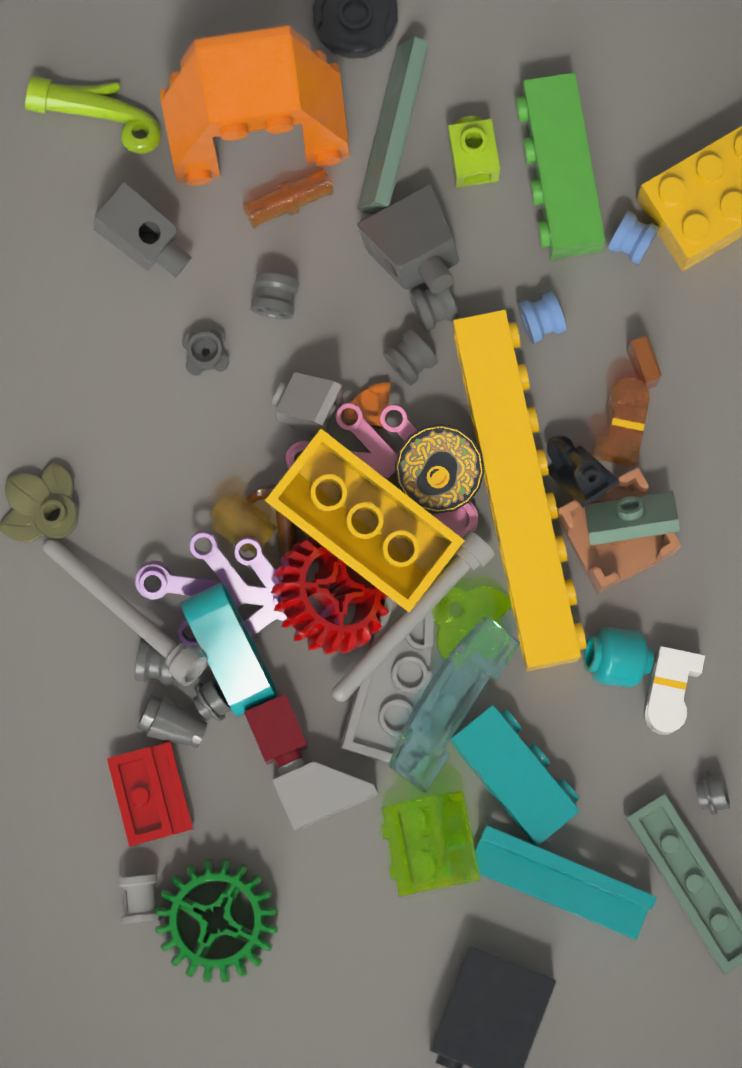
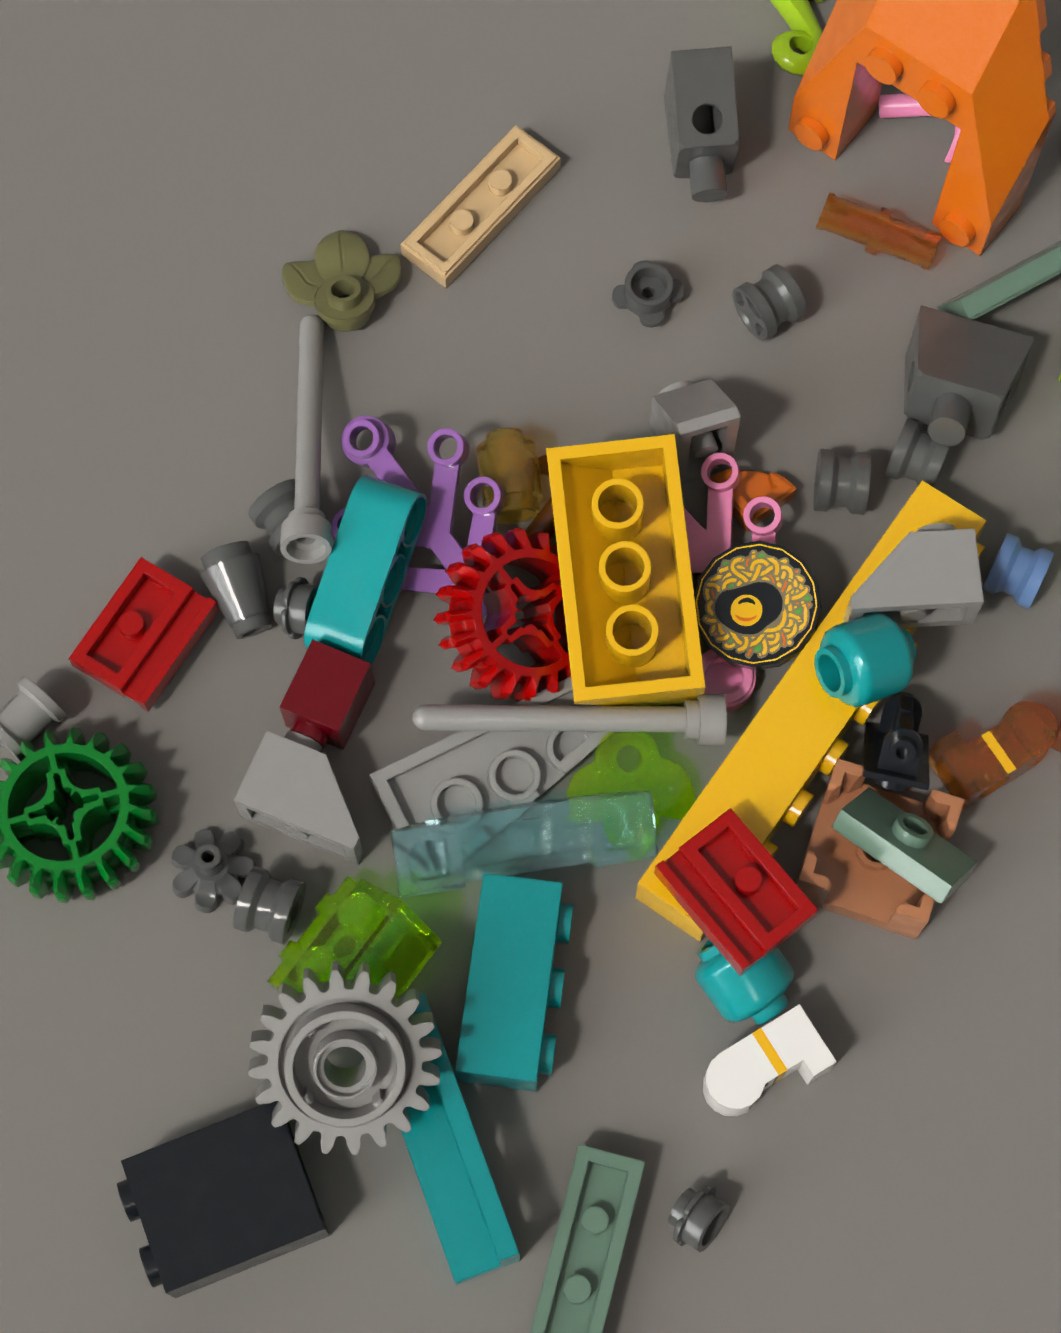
camera: 45 degrees right, 10 degrees down
(66, 390) = (480, 206): none -> tan tile
(314, 882) = (211, 869): none -> dark grey plant
(361, 860) = (269, 905): none -> dark grey wheel
(490, 925) = (336, 1098): none -> light grey gear
(511, 377) = (925, 580): none -> light grey slope
(525, 446) = (865, 660): none -> teal head
(581, 625) = (735, 891): none -> red plate

